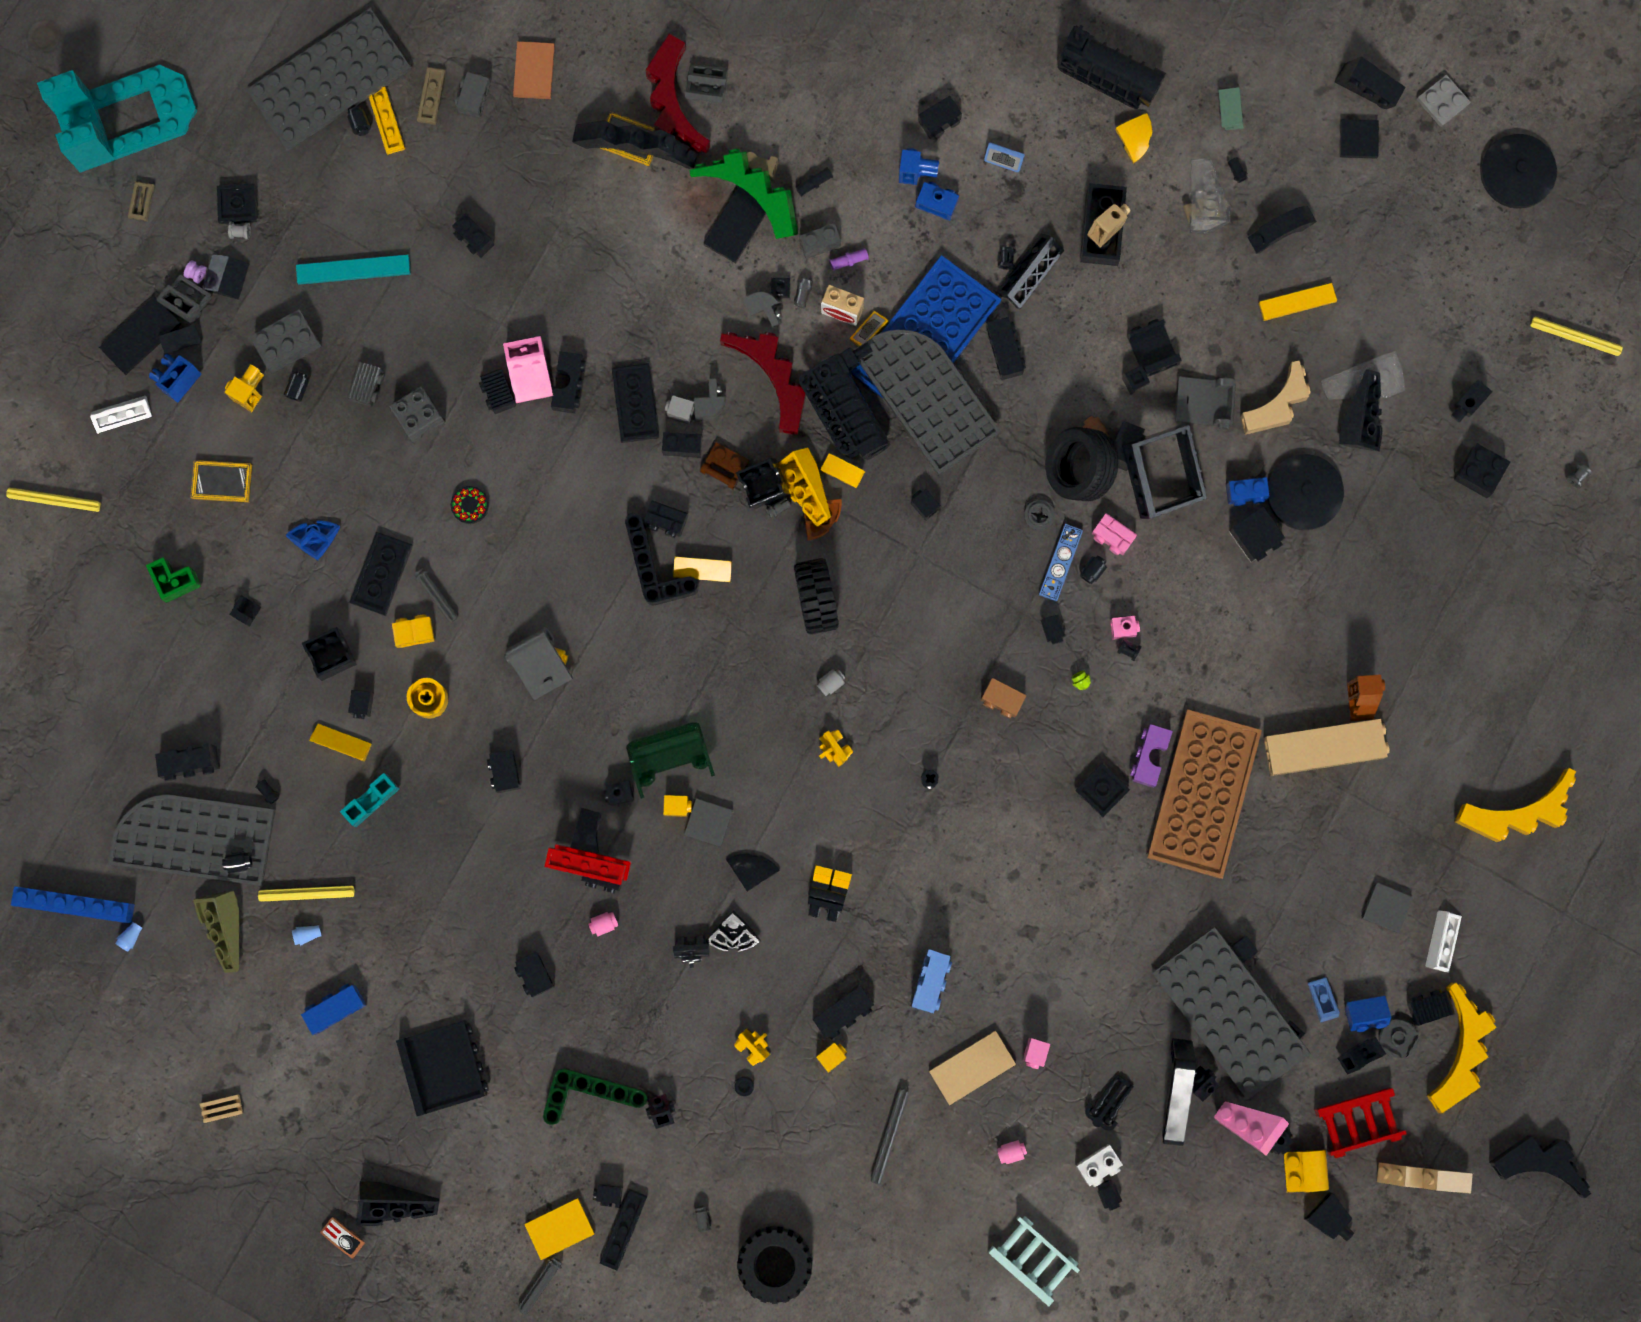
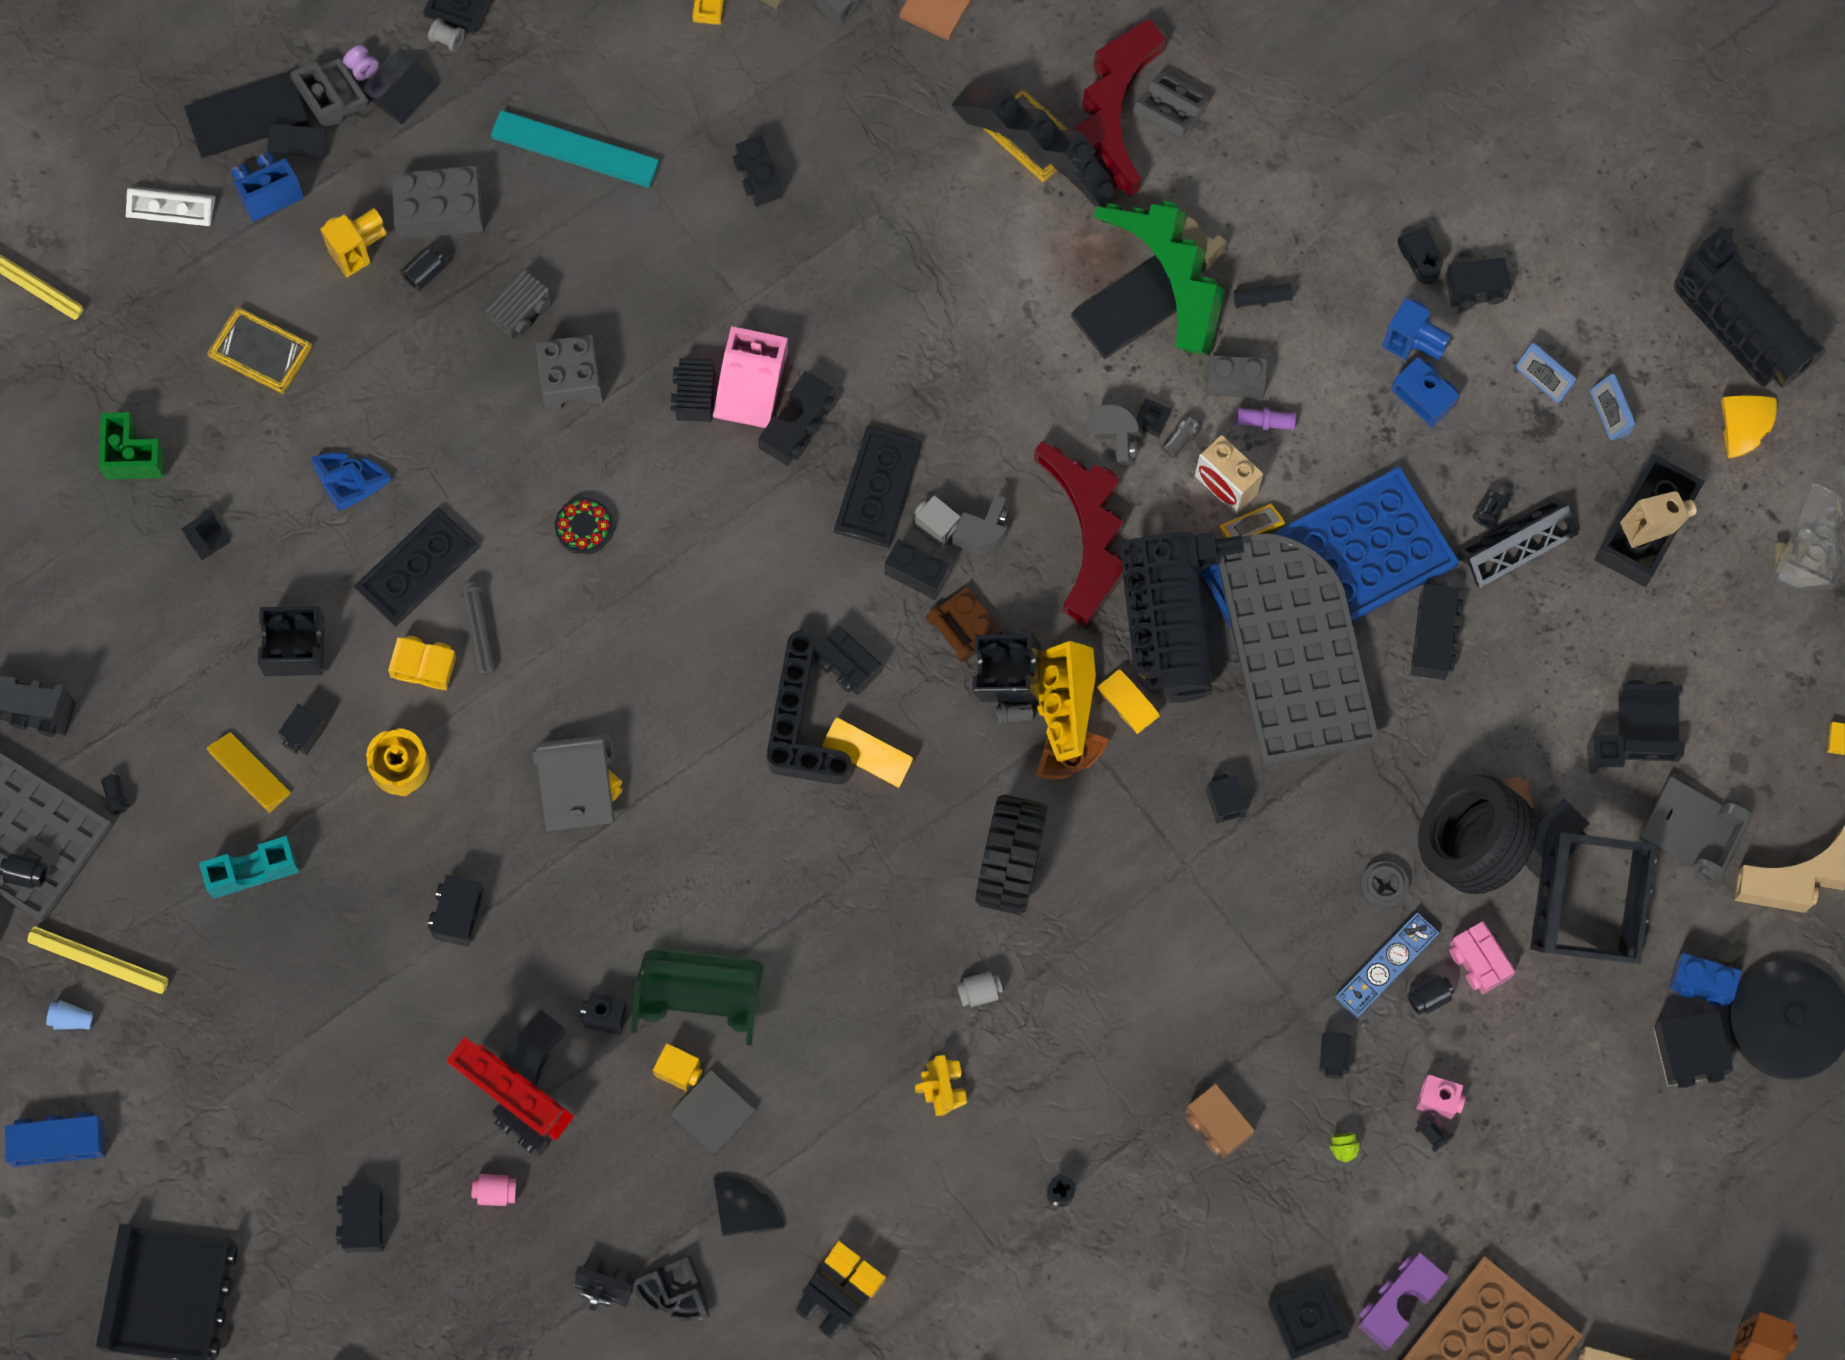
camera: 20 degrees right, 10 degrees down
(896, 111) = (1421, 254): none -> black piece
(1053, 162) = (1613, 408): none -> slope

